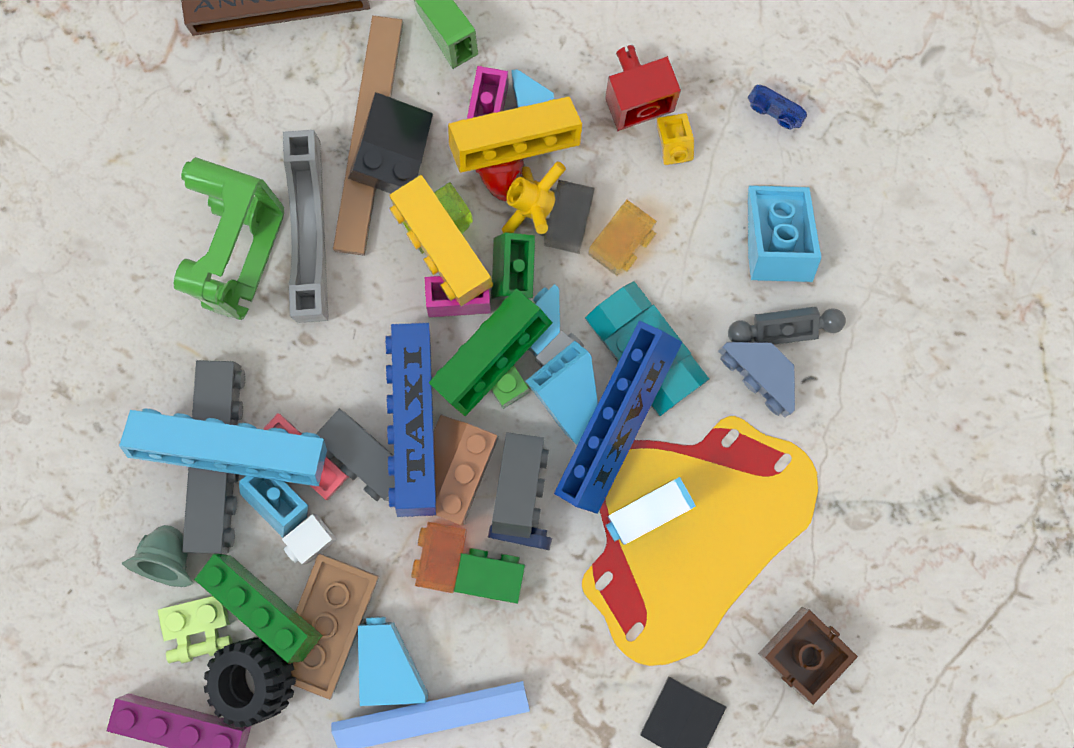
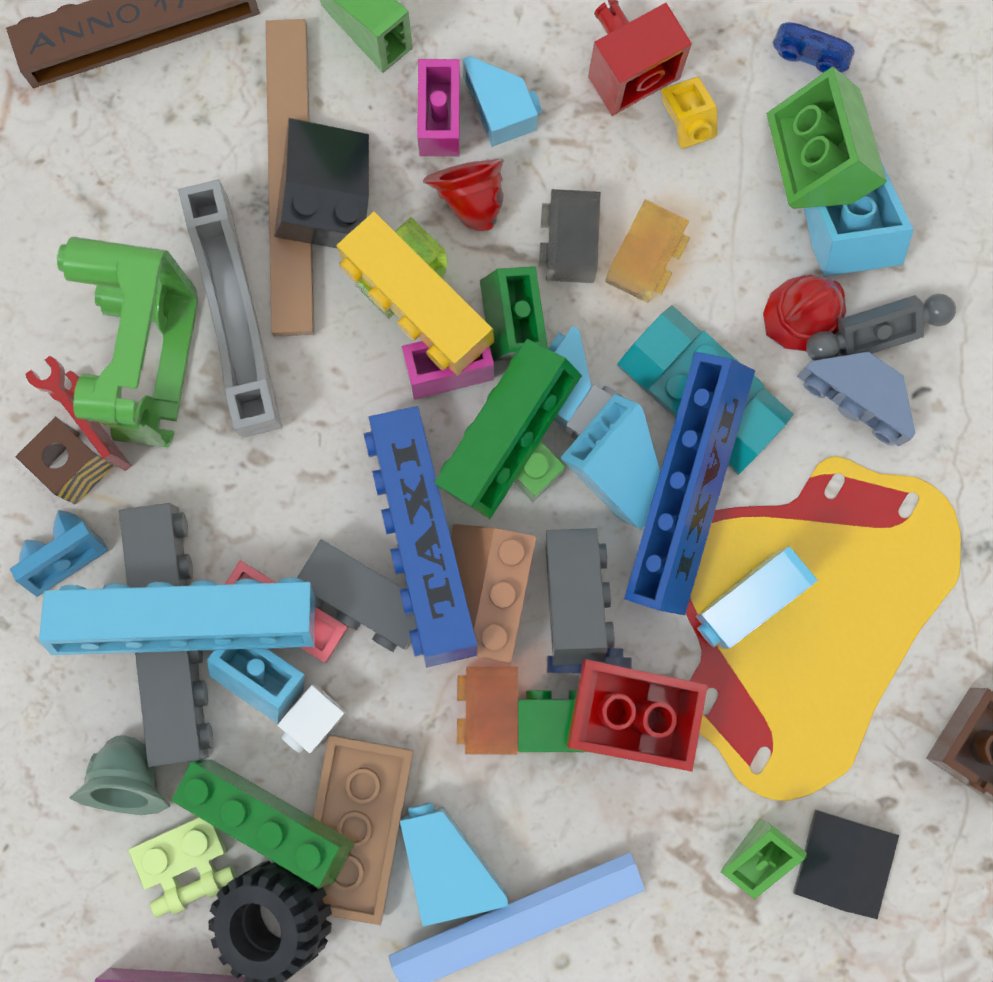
camera: 15 degrees left, 0 degrees up
(138, 390) = (48, 564): none -> dark azure tile
(174, 325) = (80, 471): none -> reddish brown piece
(191, 305) = (93, 430): none -> red flag
(514, 134) = (485, 137): yellow brick -> none
(532, 198) = (523, 219): yellow bar -> none
(545, 581) = (637, 715): none -> red slope
(619, 705) = (762, 859): none -> bright green slope
(732, 301) = (802, 309): none -> red piece
(770, 181) = (825, 144): none -> bright green slope

